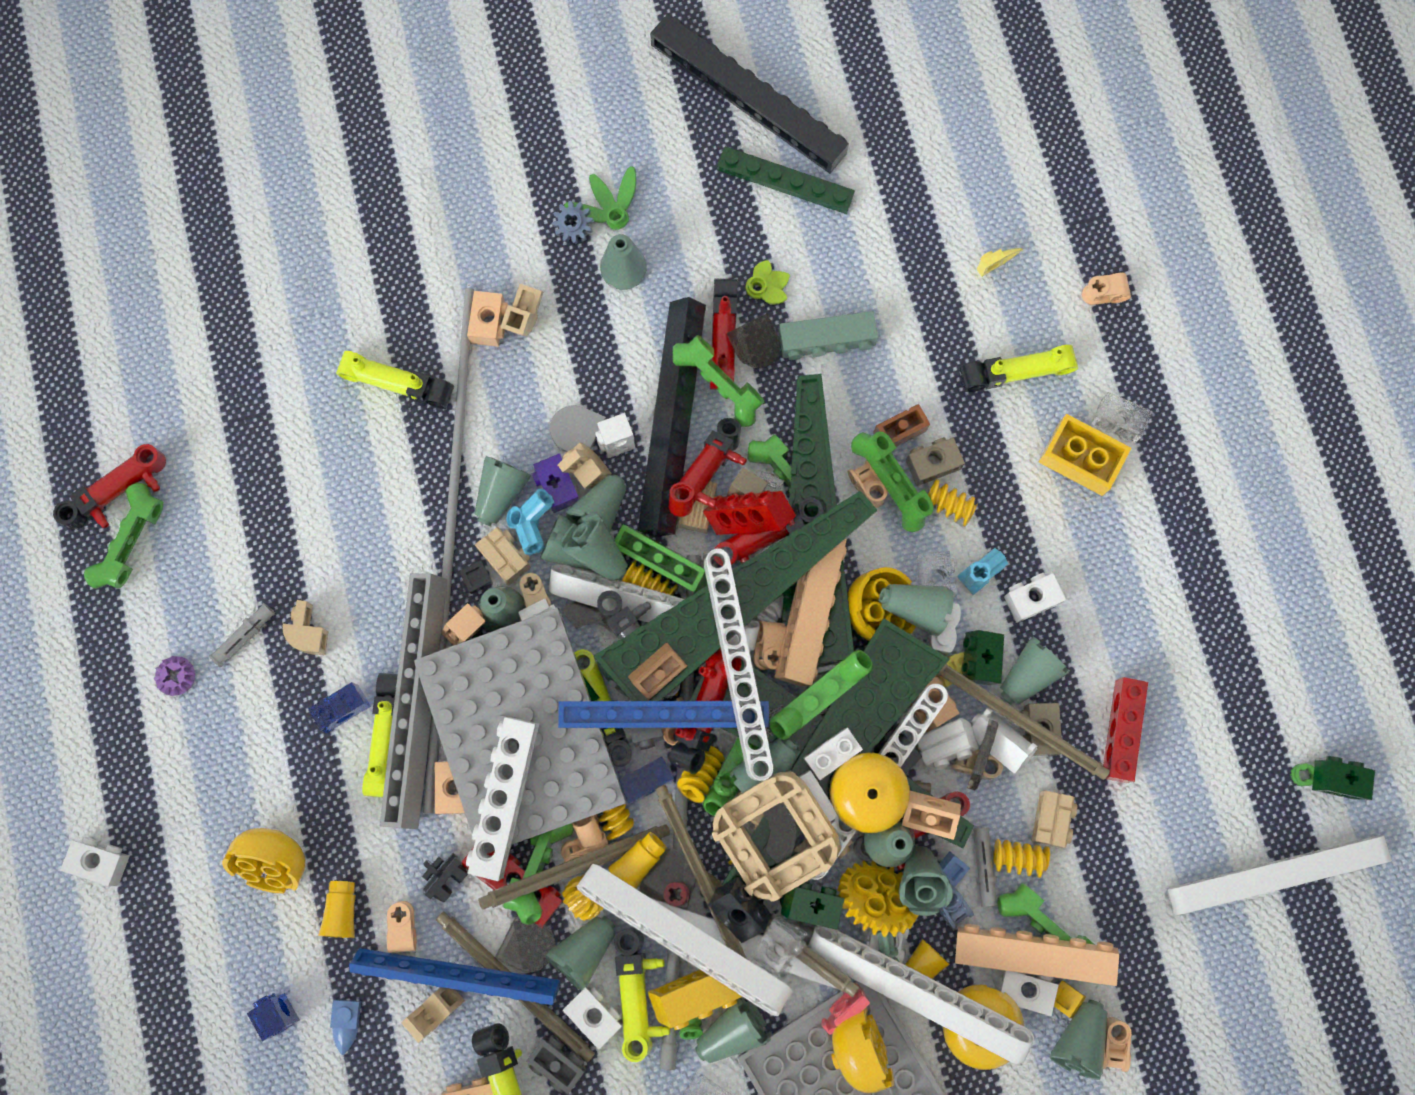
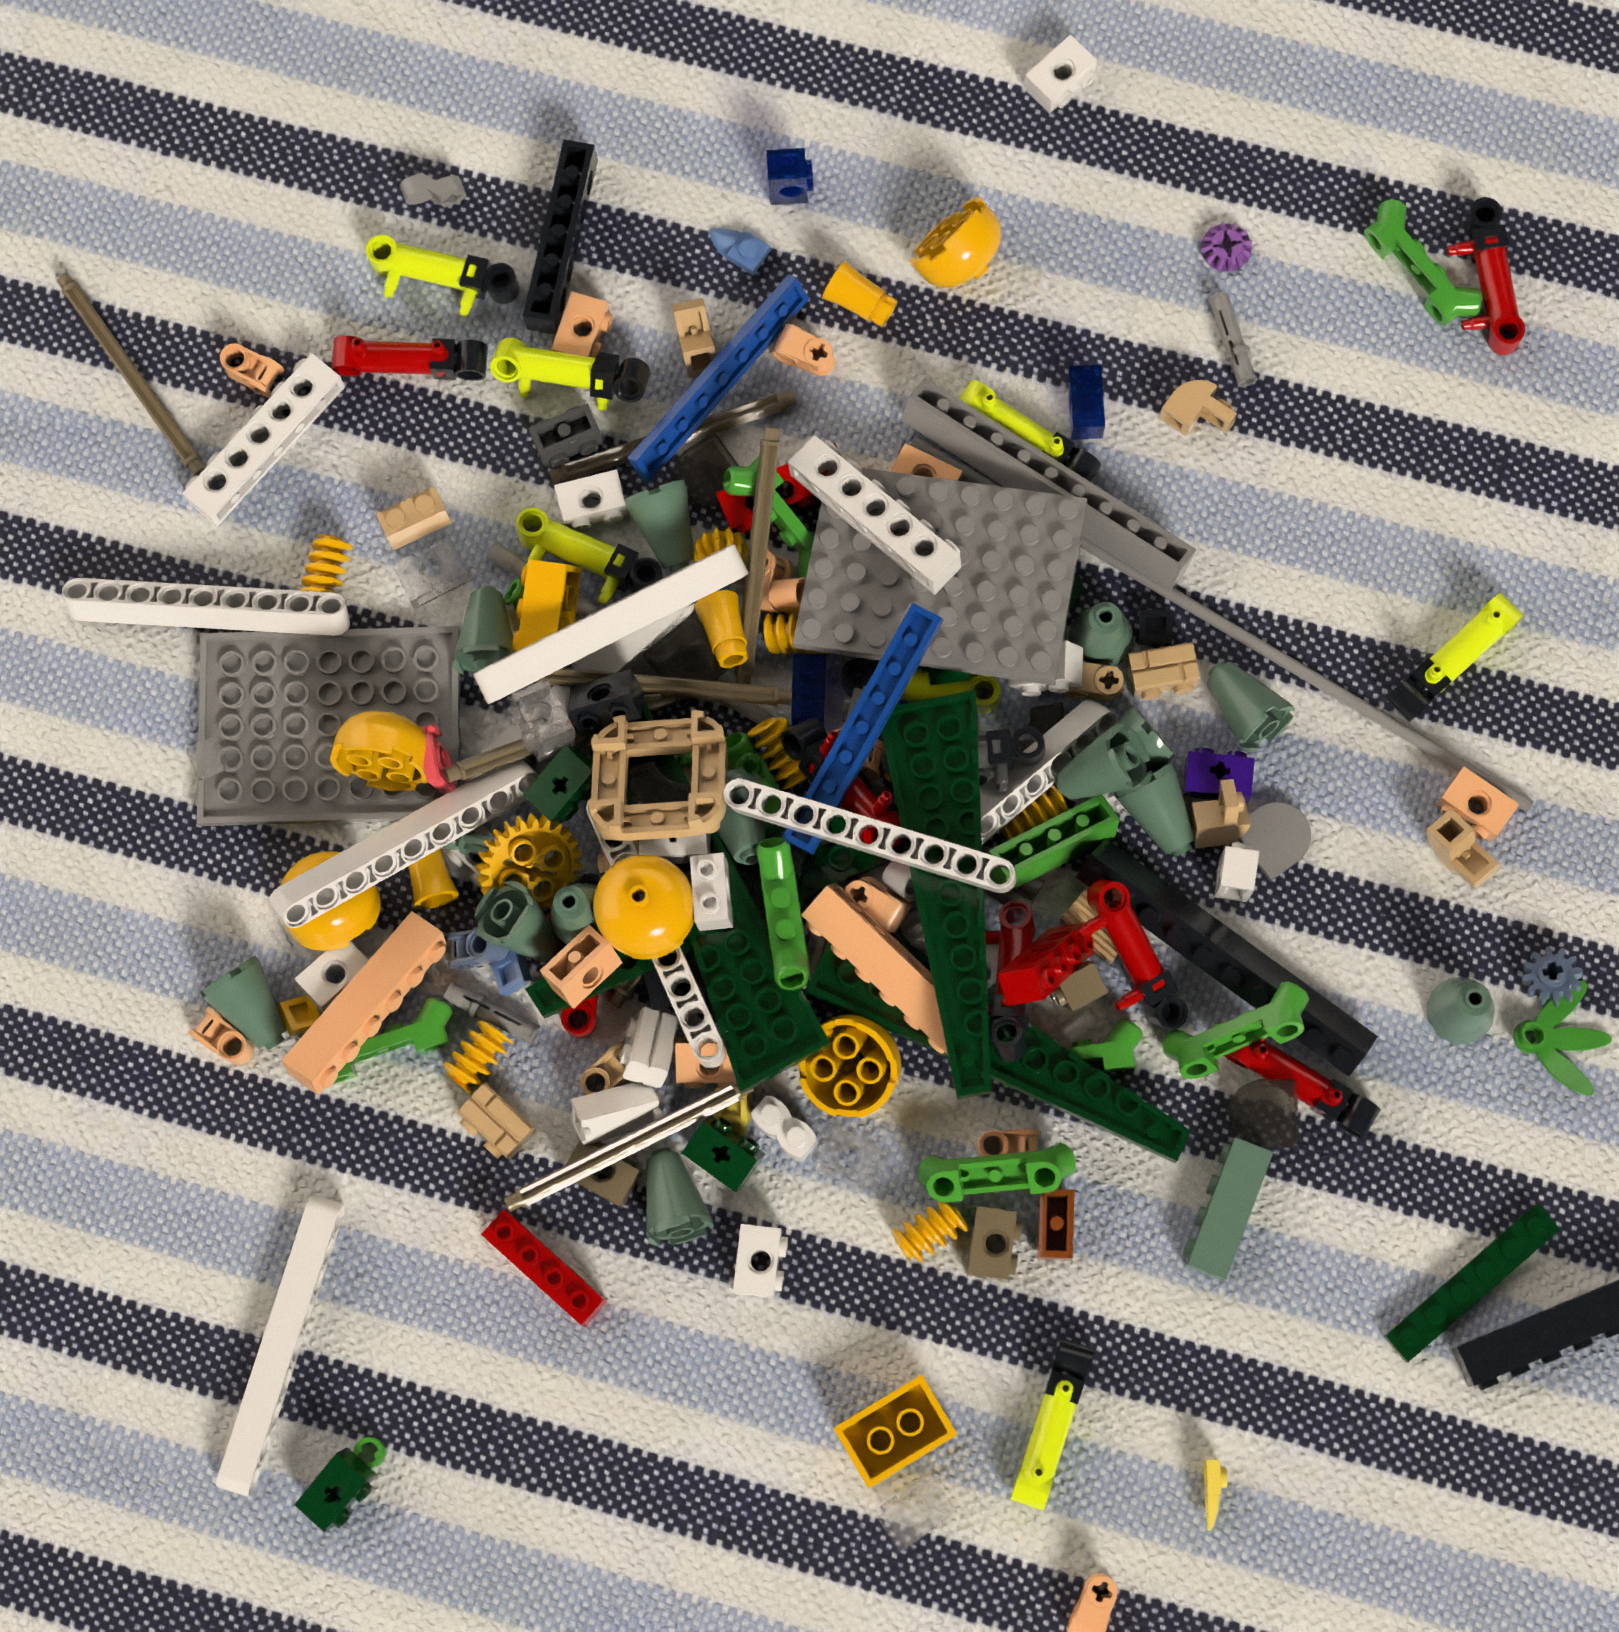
camera: 130 degrees right, 0 degrees up
(436, 886) = (827, 409): black hips -> none
(463, 625) = (1100, 578): light nougat brick -> none
(526, 521) = (1189, 715): medium azure piece -> none
(657, 671) = (916, 748): medium nougat slope -> none
(668, 894) = (671, 643): dark red bush -> none
(770, 282) = (1339, 1182): lime plate -> none
(919, 605) = (825, 1099): sand green cone -> none
(981, 571) = (824, 1212): medium azure piece -> none
(982, 755) = (612, 1073): clear smoke tile -> none

